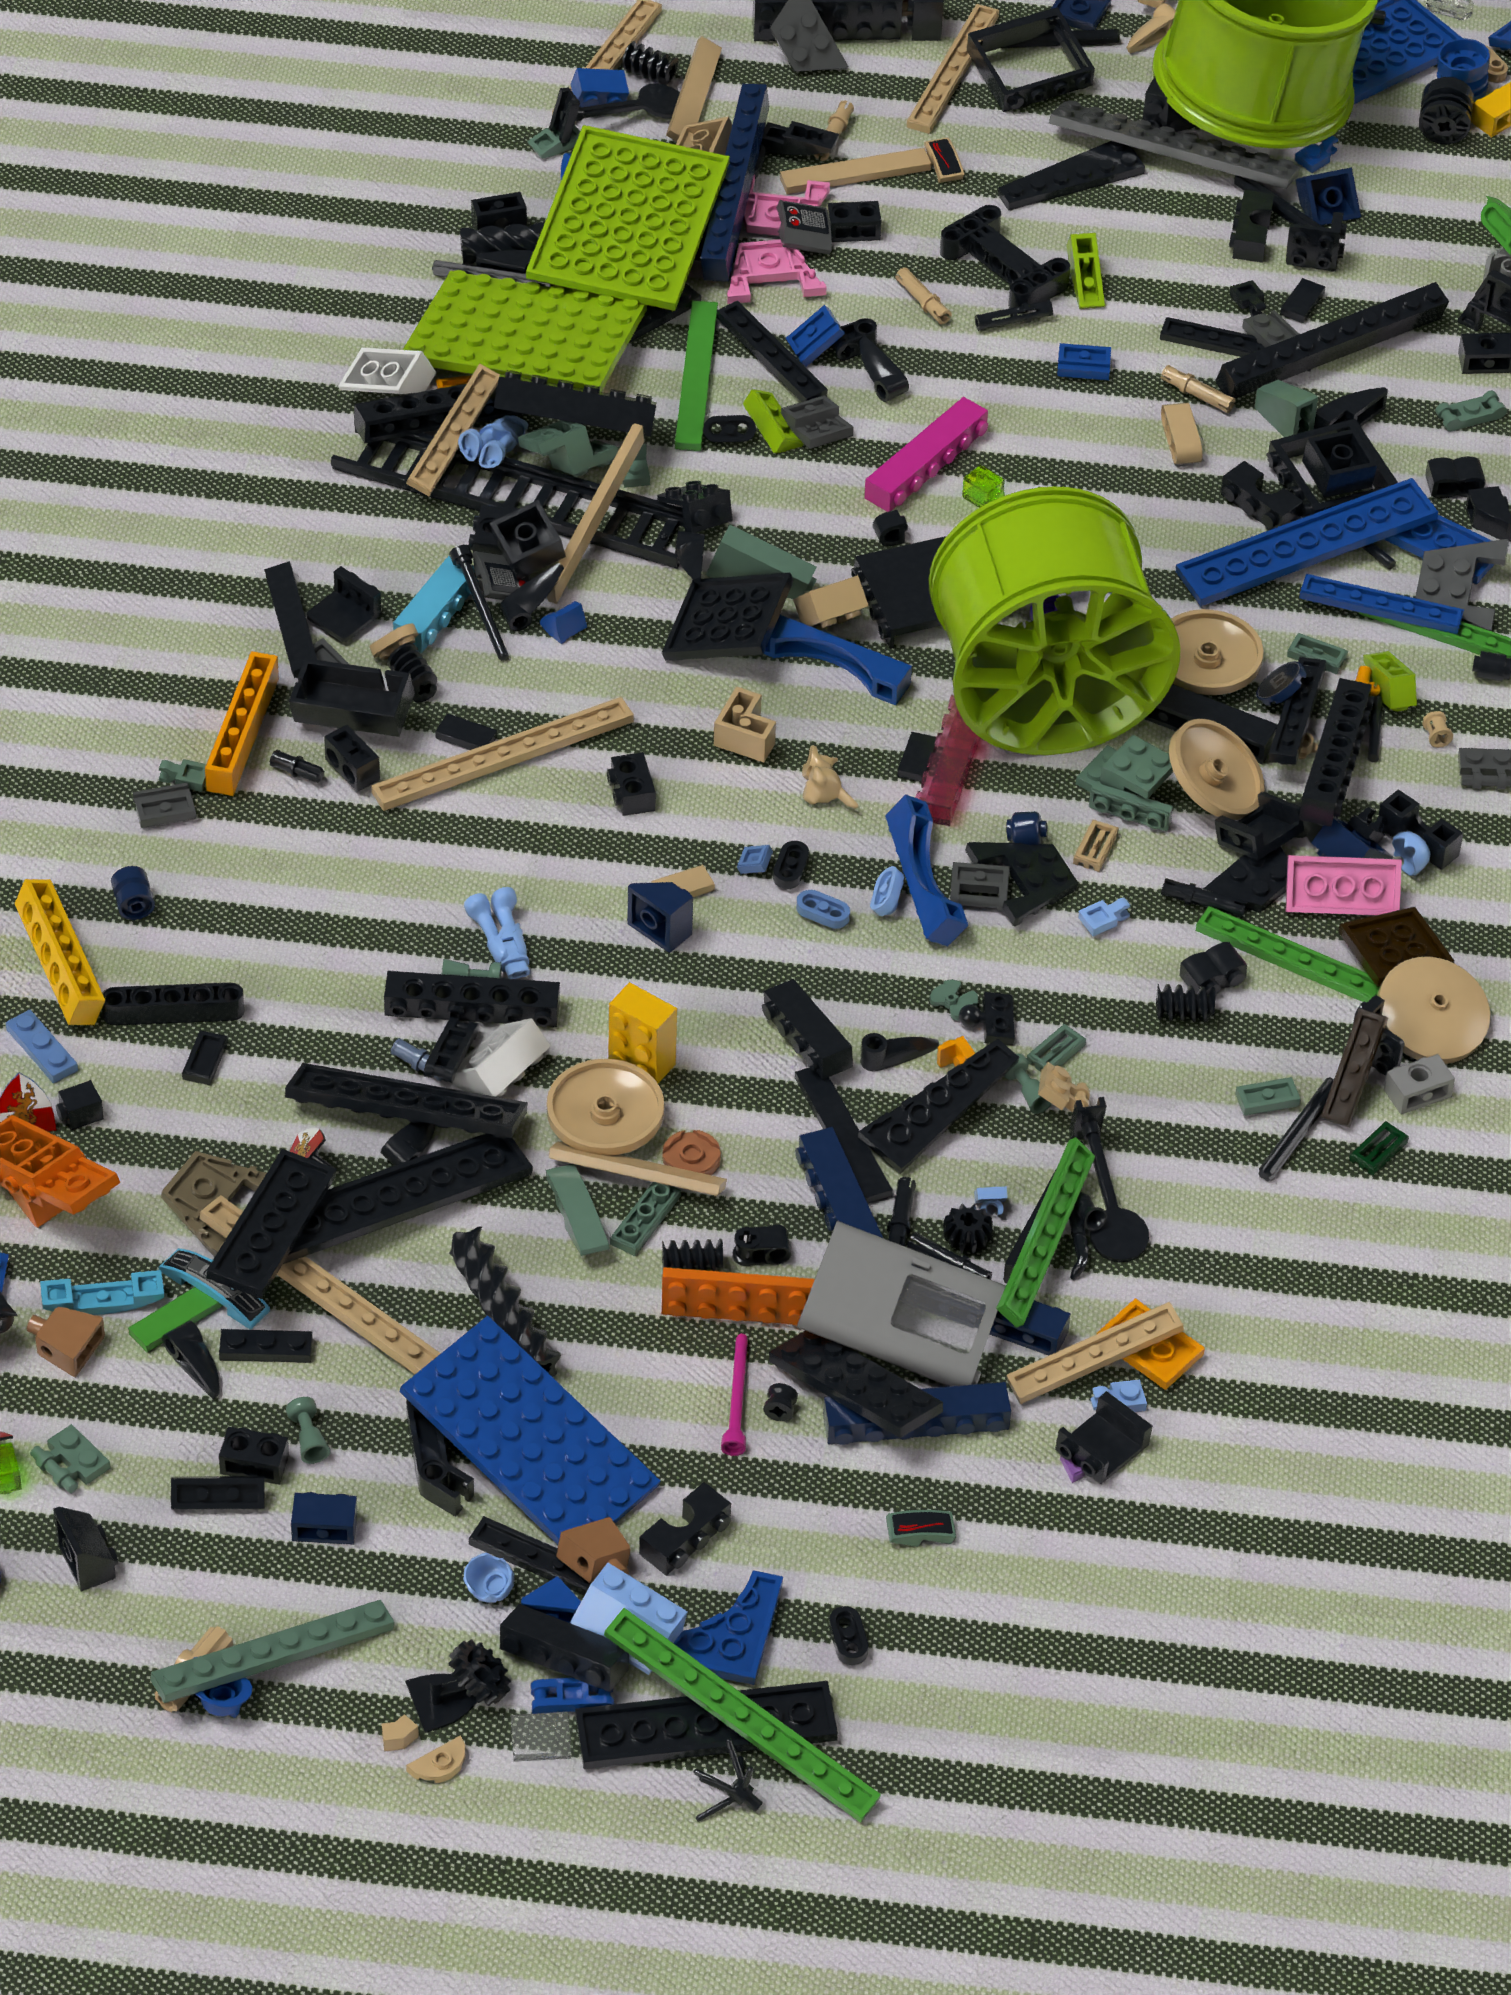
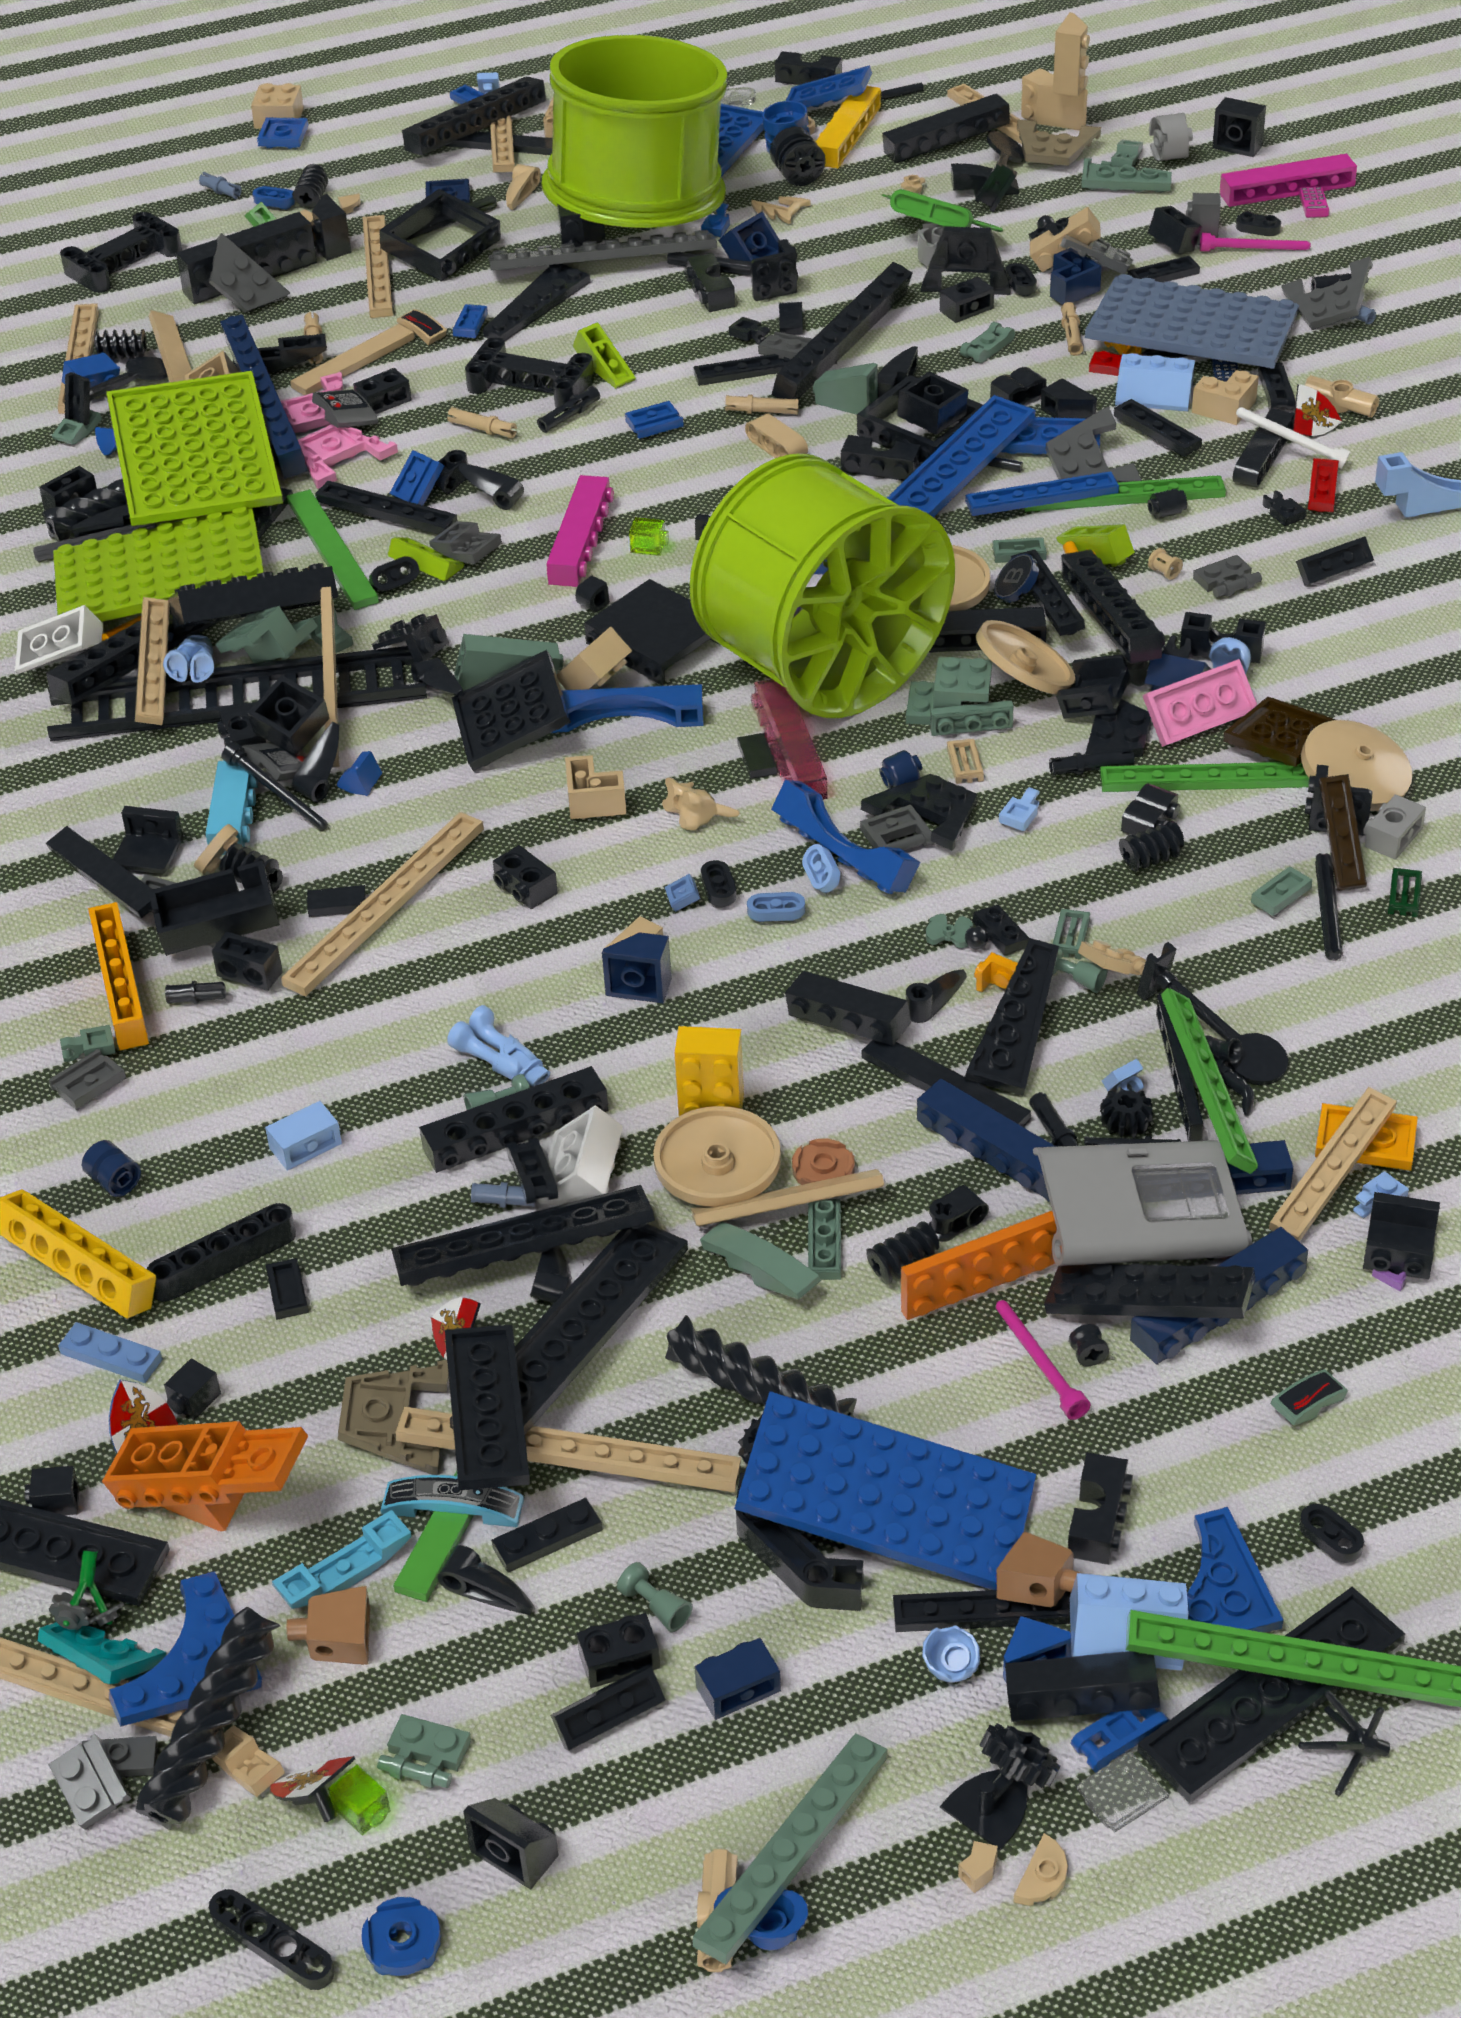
camera: 25 degrees left, 5 degrees down
(298, 934) = (303, 1135): none -> light blue panel
(993, 173) = (470, 321): none -> blue plate
(1392, 170) = (783, 213): none -> tan piece

